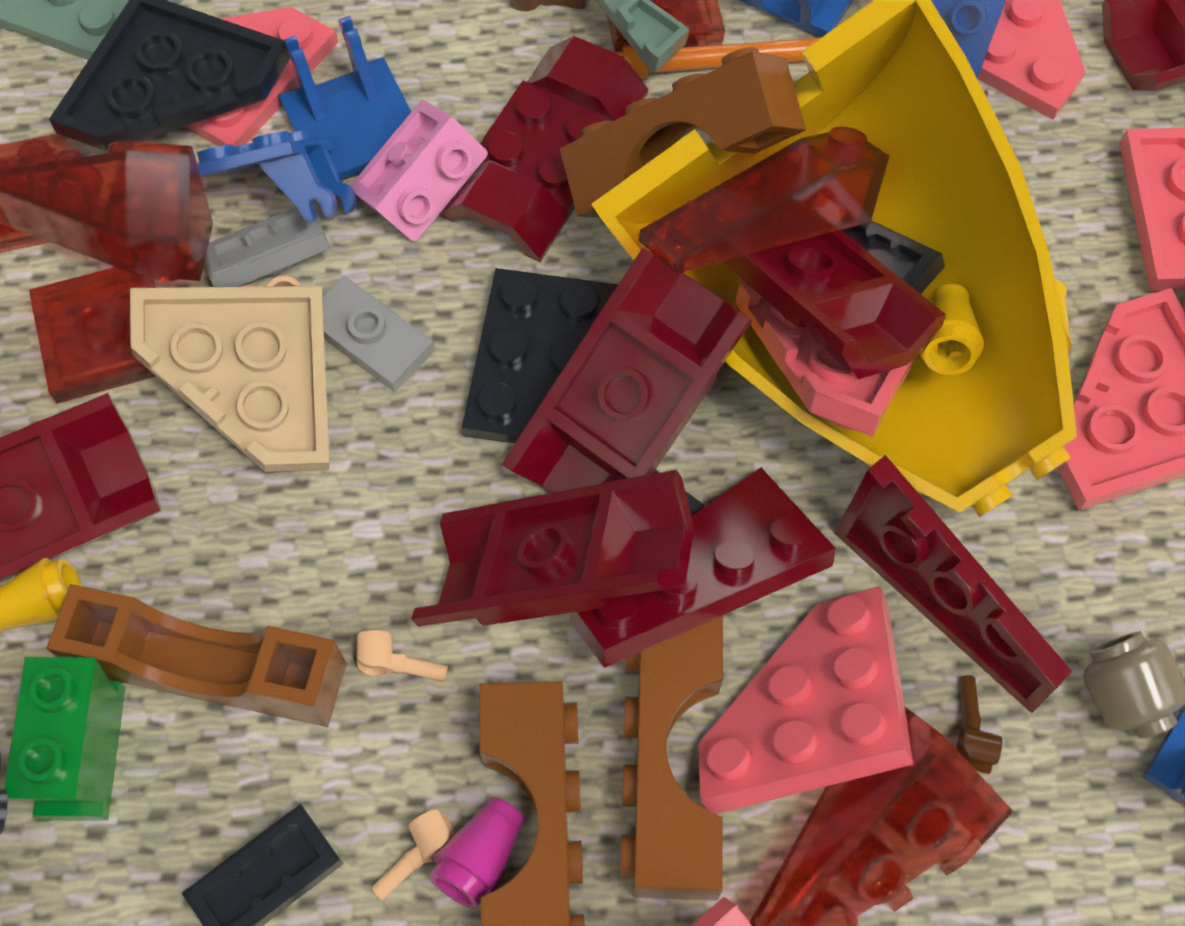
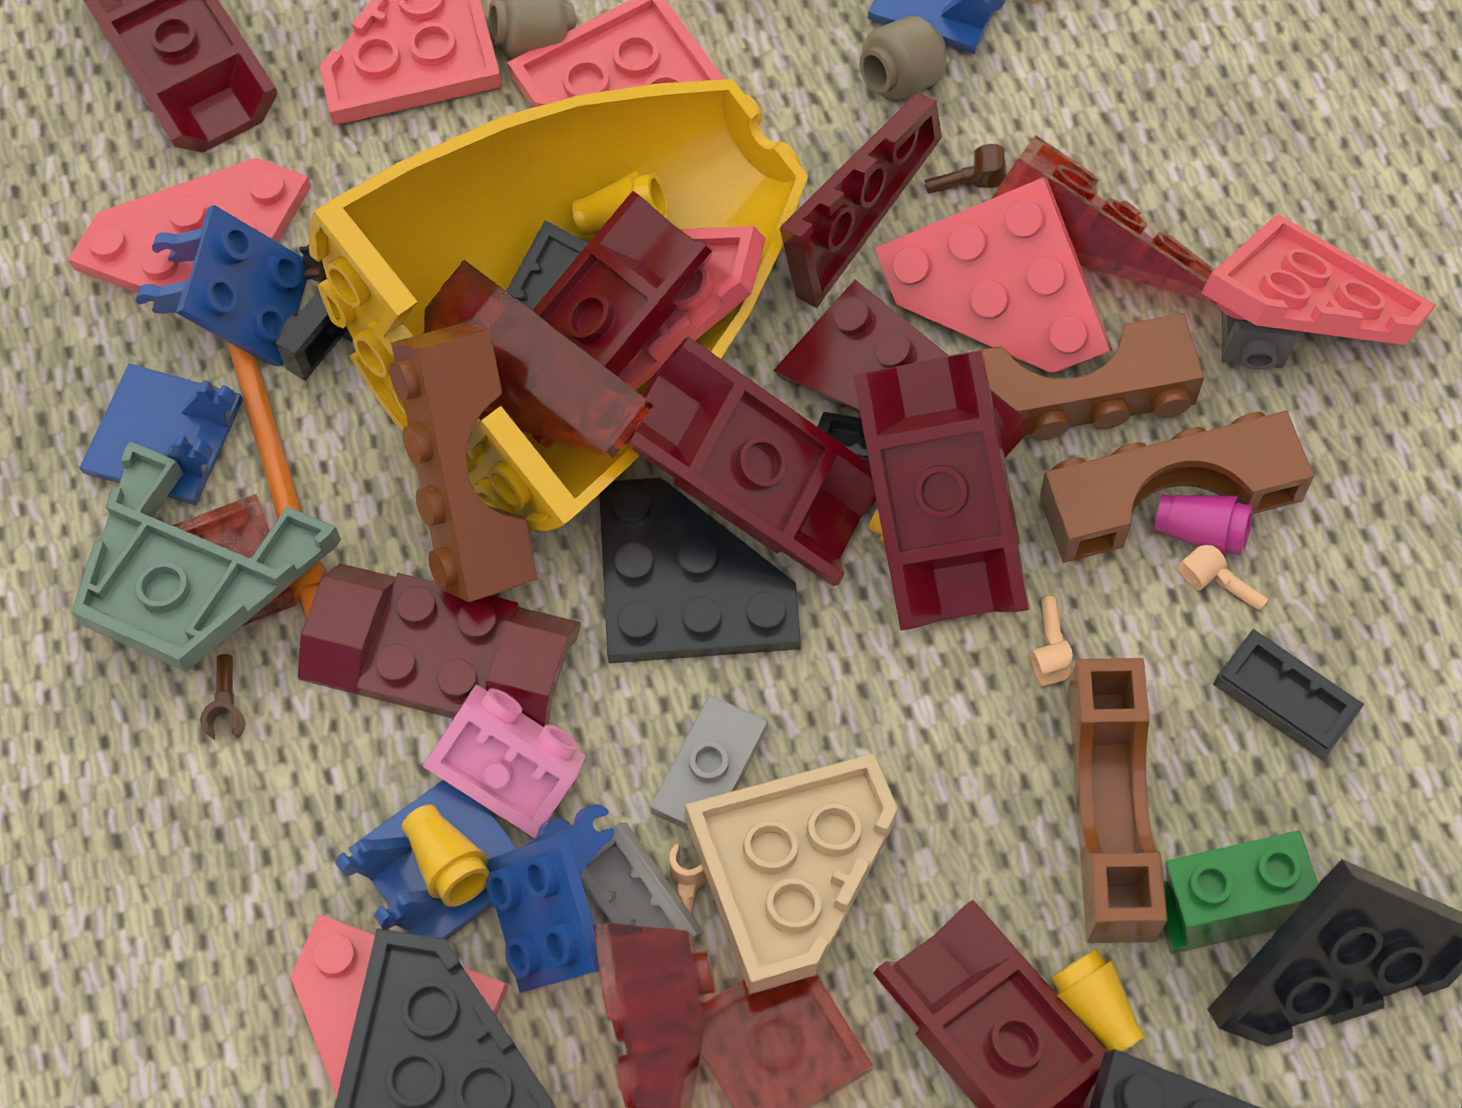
camera: 100 degrees left, 0 degrees up
(337, 105) = (446, 858): none -> yellow cone

